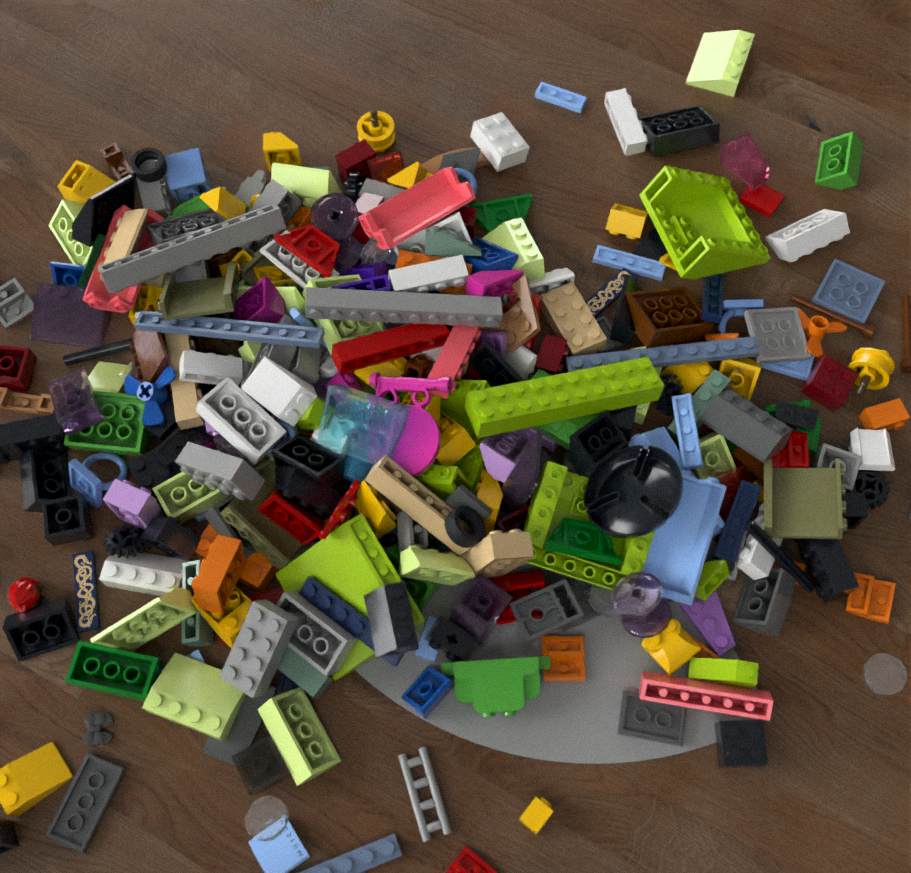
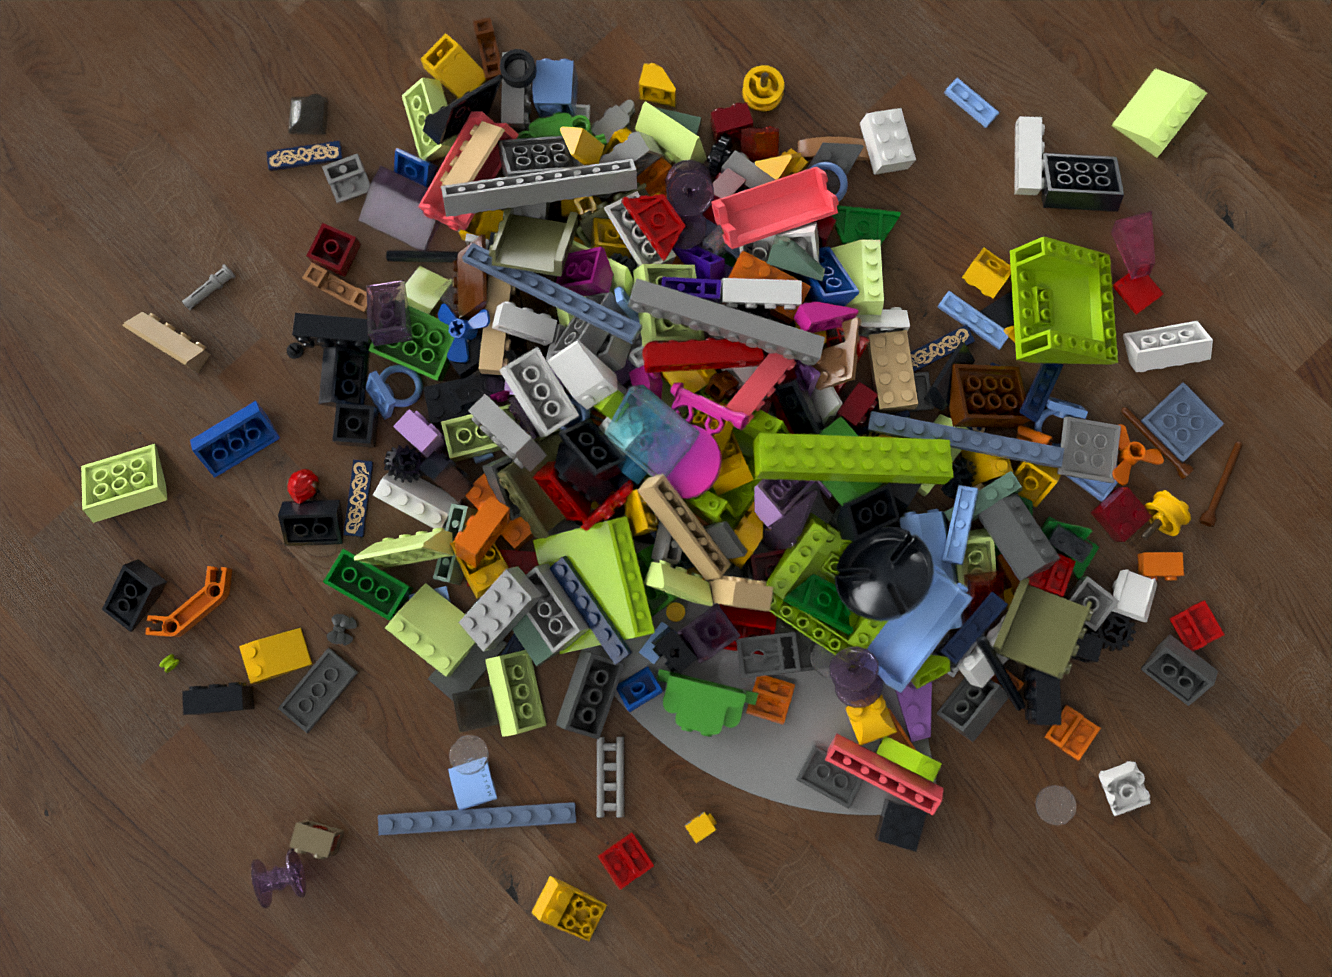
camera: 20 degrees right, 15 degrees up
(91, 261) = (436, 163): dark green tile -> none
(377, 710) = (589, 694): none -> dark grey brick
(391, 620) = (623, 626): black slope -> none
(440, 603) = (675, 612): none -> yellow tile
(456, 532) = (727, 557): black tyre -> none
(839, 162) = (1235, 273): bright green slope -> none

